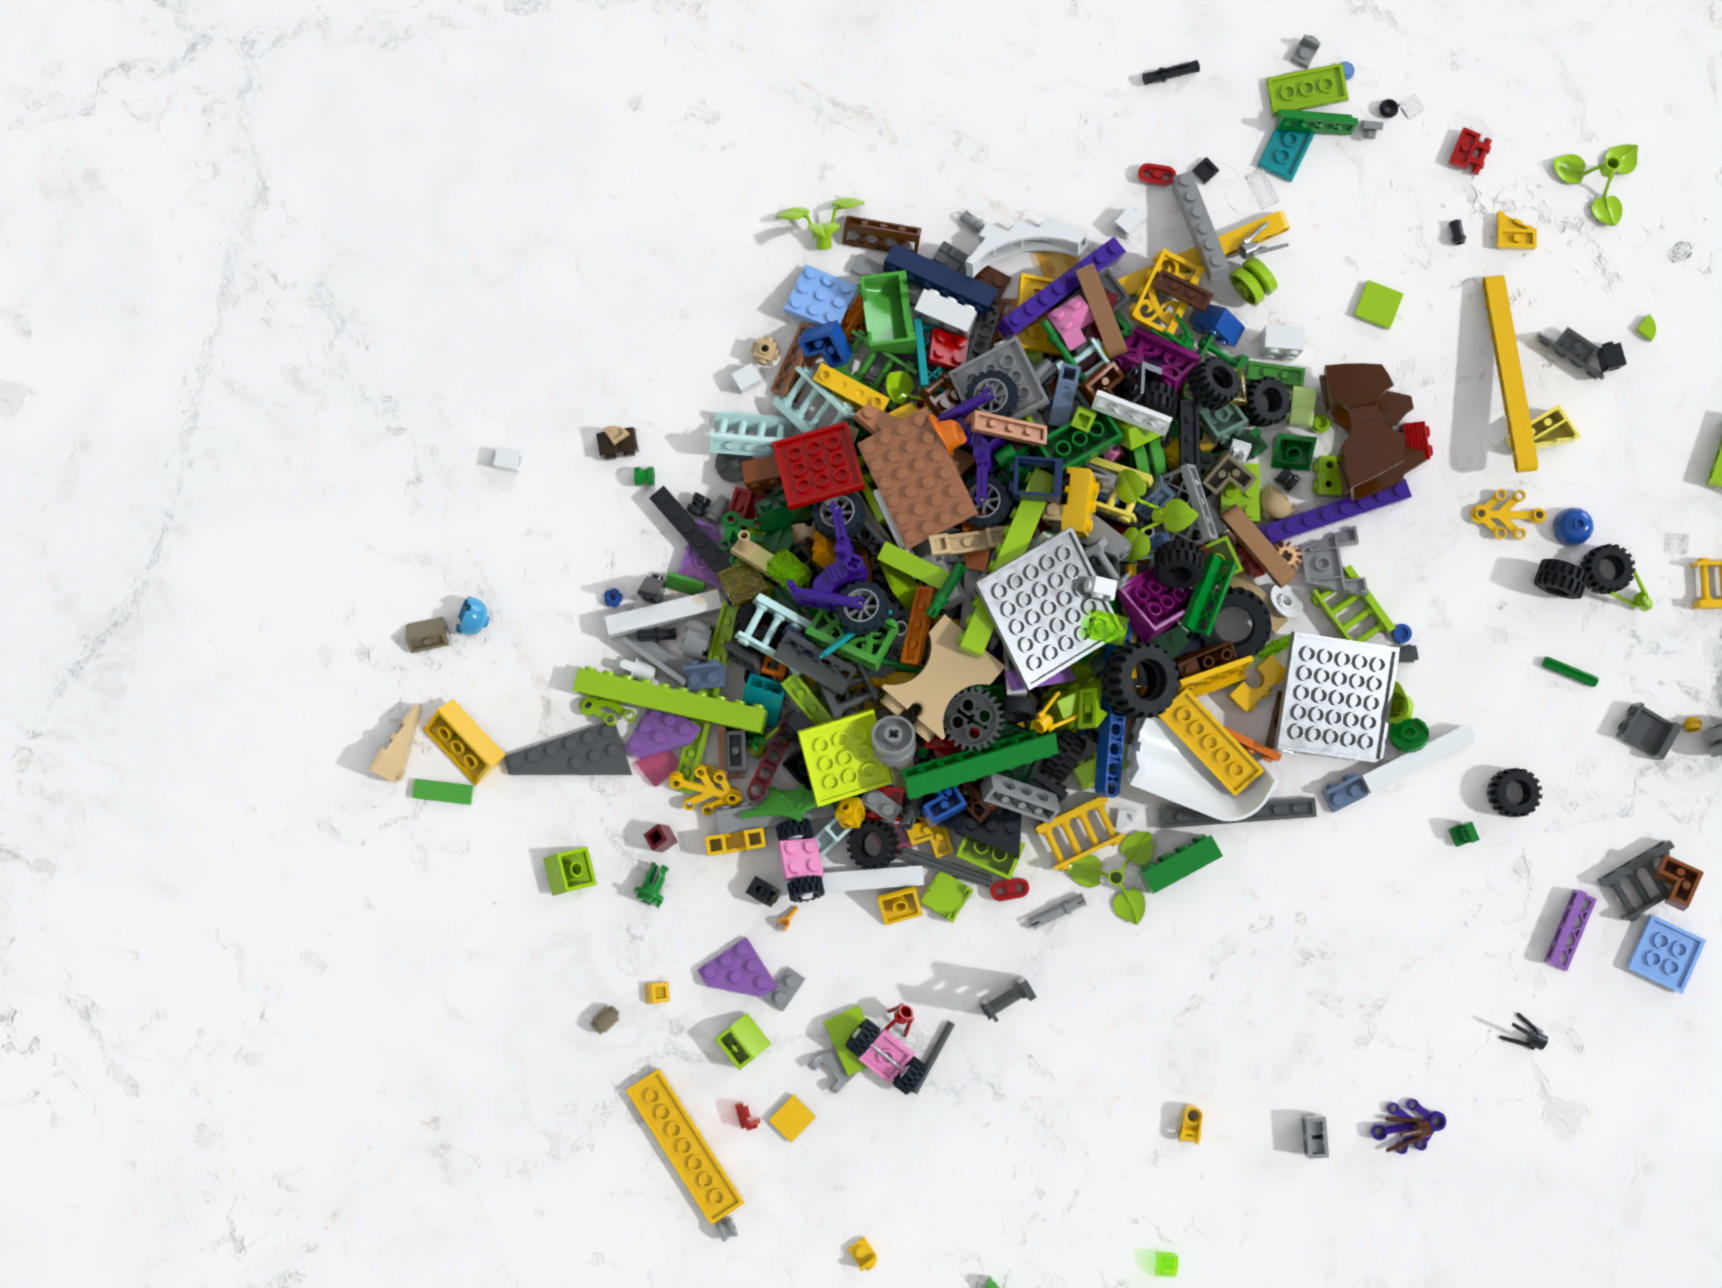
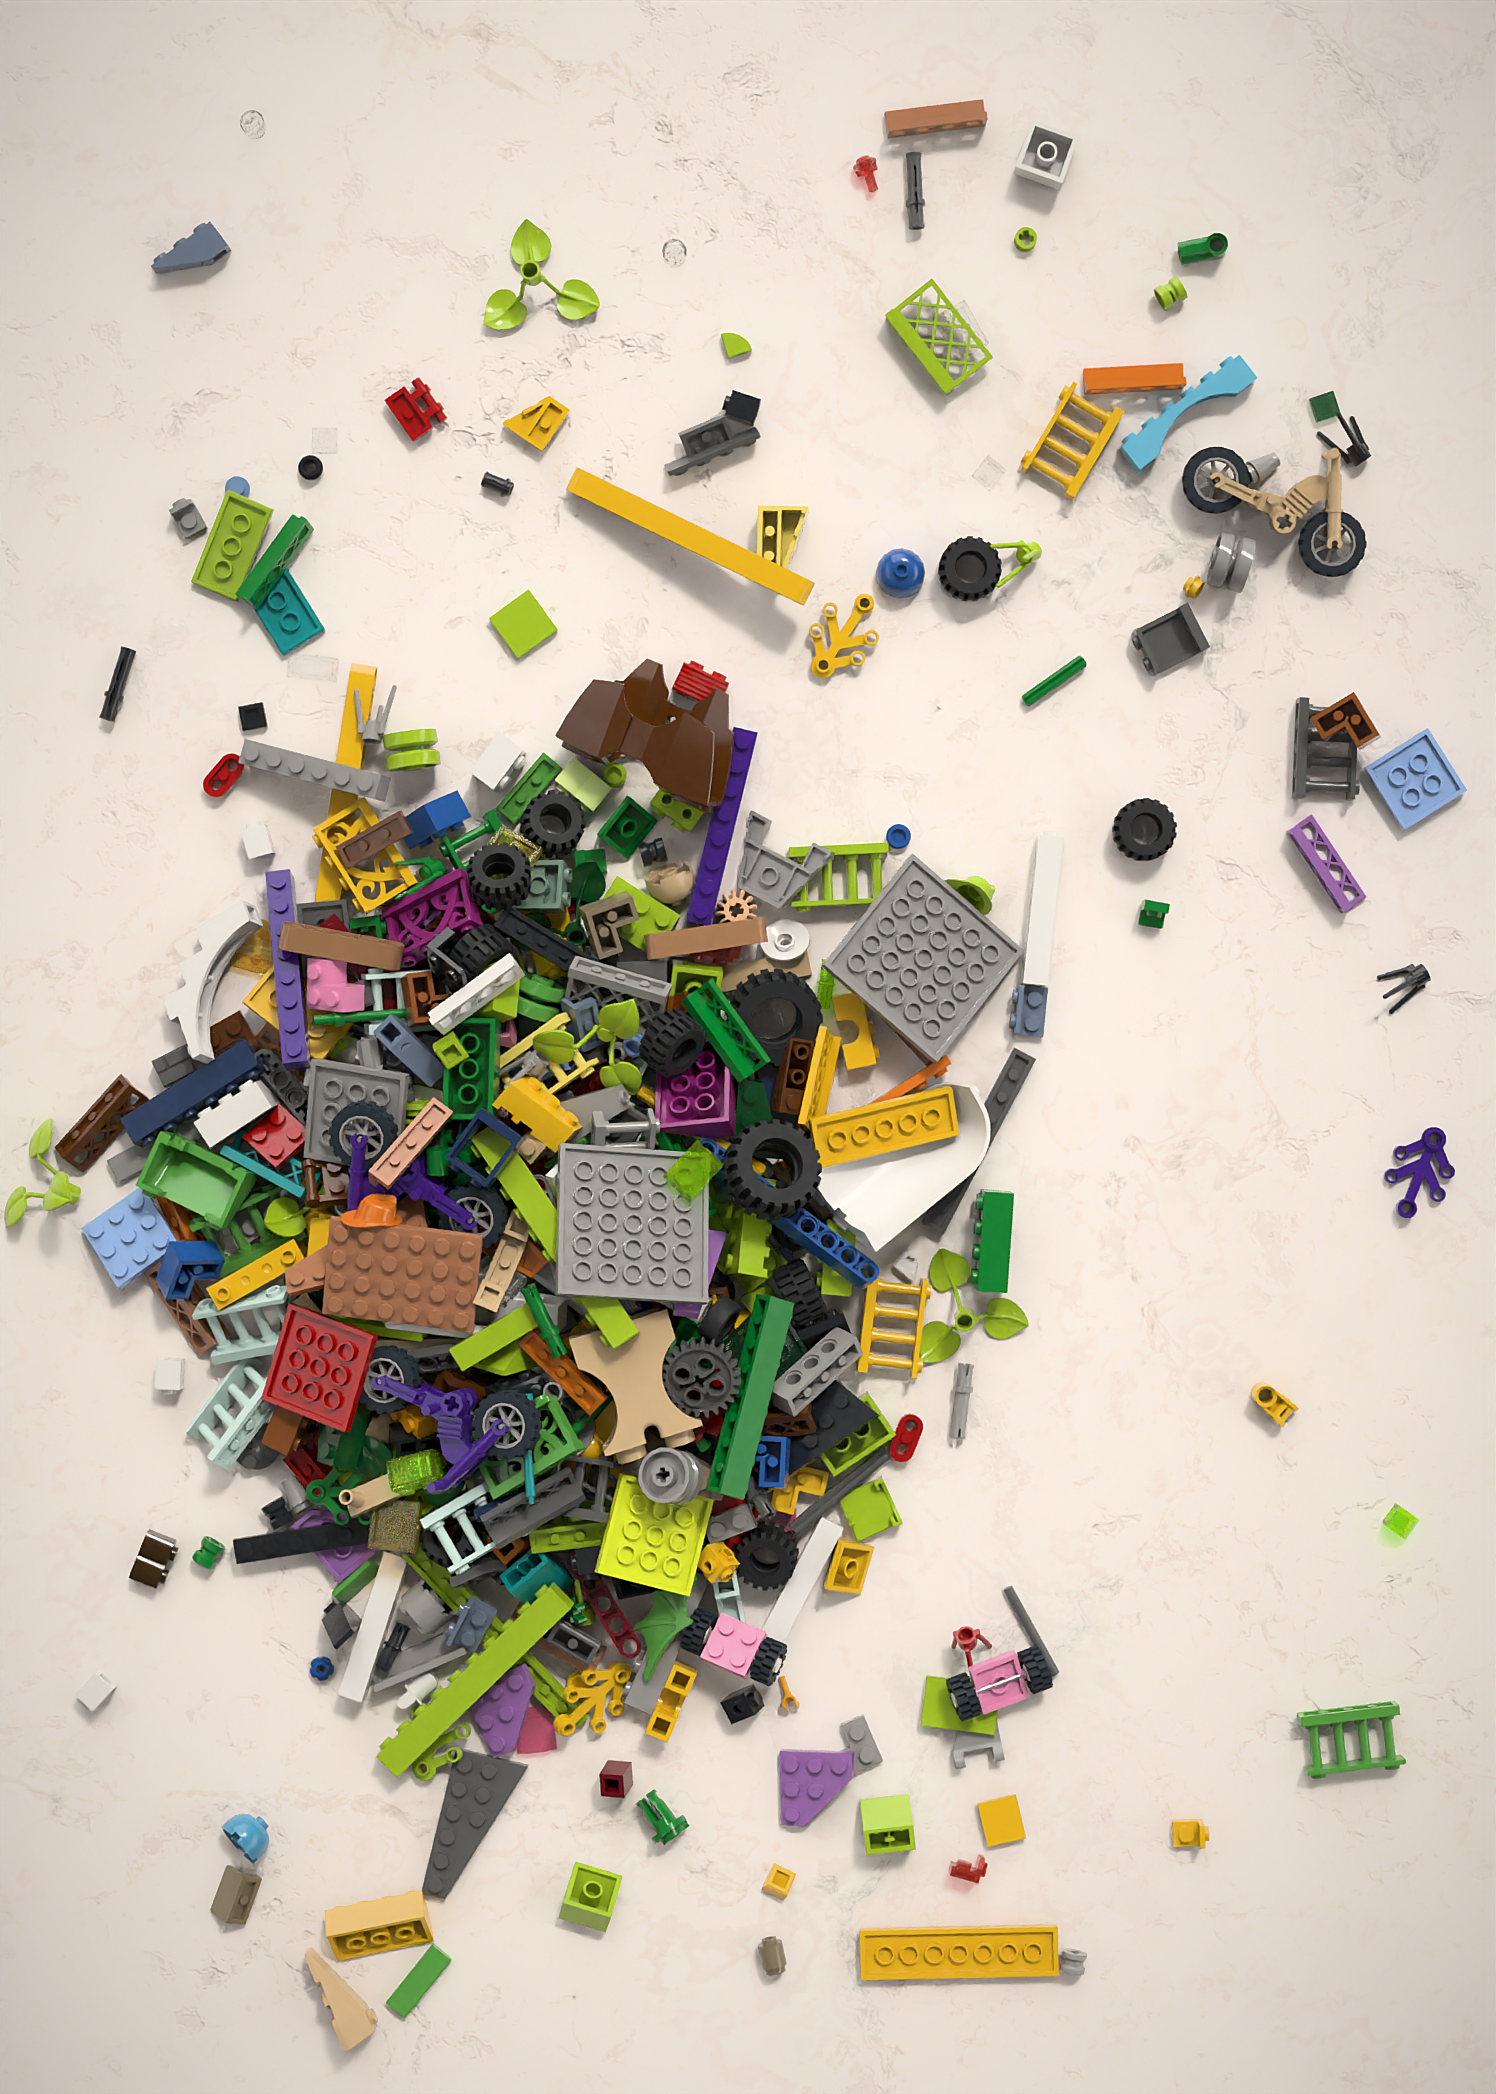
camera: 60 degrees left, 5 degrees up
(616, 434) = (143, 1557): tan tile -> none
(768, 357) = (160, 1330): tan brick -> none
(972, 221) = (149, 1013): light grey pin -> none
(1020, 990) = (1021, 1498): dark grey fence -> none
(1045, 721) = (752, 1299): yellow plant -> none
(1089, 708) = (773, 1245): lime slope -> none
(1100, 588) = (646, 1154): white brick -> none
(1240, 450) = (589, 889): white tile -> none
(1315, 1136) = (1368, 1280): light grey brick -> none
(1371, 127) = (319, 501): light grey tile -> none
(1408, 654) = (924, 846): dark grey cone -> none
(1409, 735) = (1012, 902): green tile -> none
(1420, 1130) = (1433, 1165): reddish brown plant -> none
(1561, 578) = (948, 629): black tyre -> none

